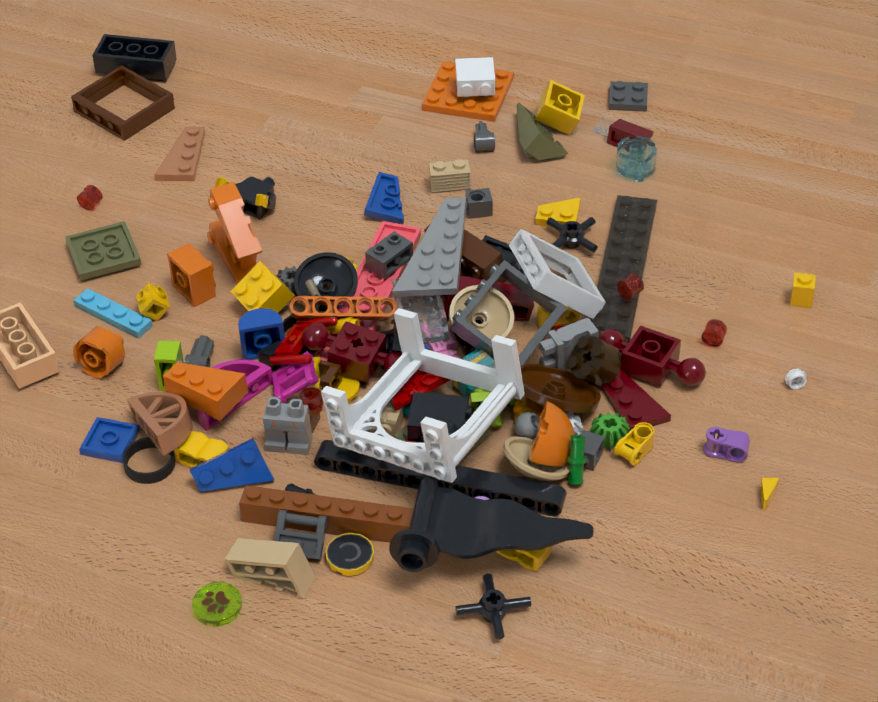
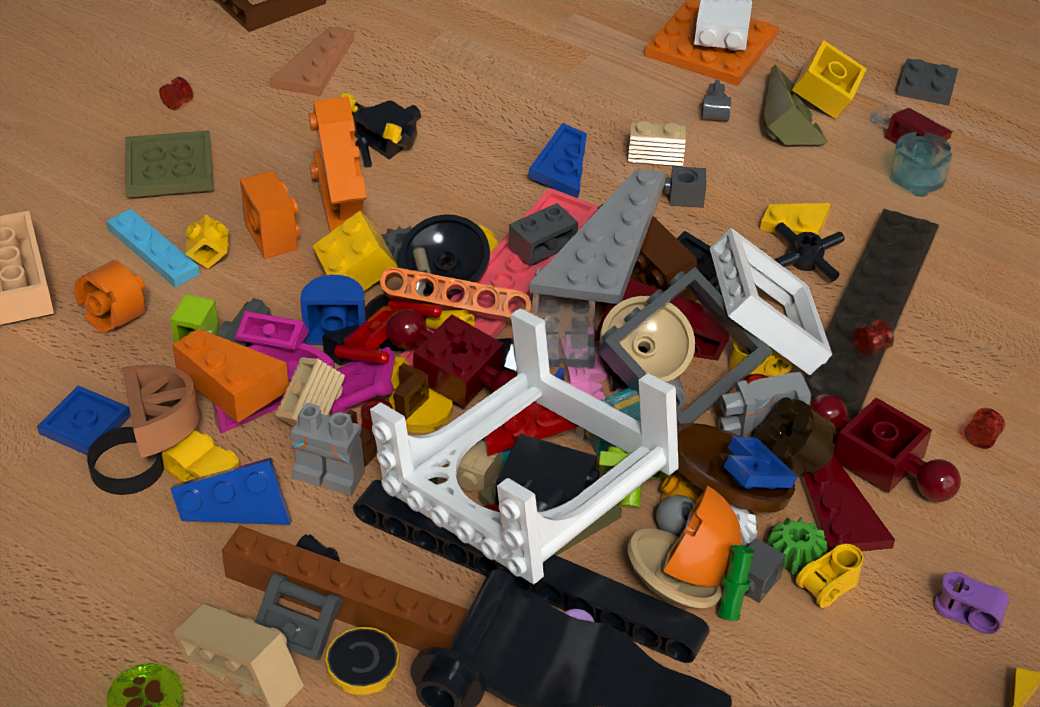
camera: 10 degrees right, 0 degrees up
(223, 355) = (271, 331): none -> dark pink slope
(262, 385) = (311, 383): none -> tan brick
(573, 383) = (756, 465): none -> blue plate

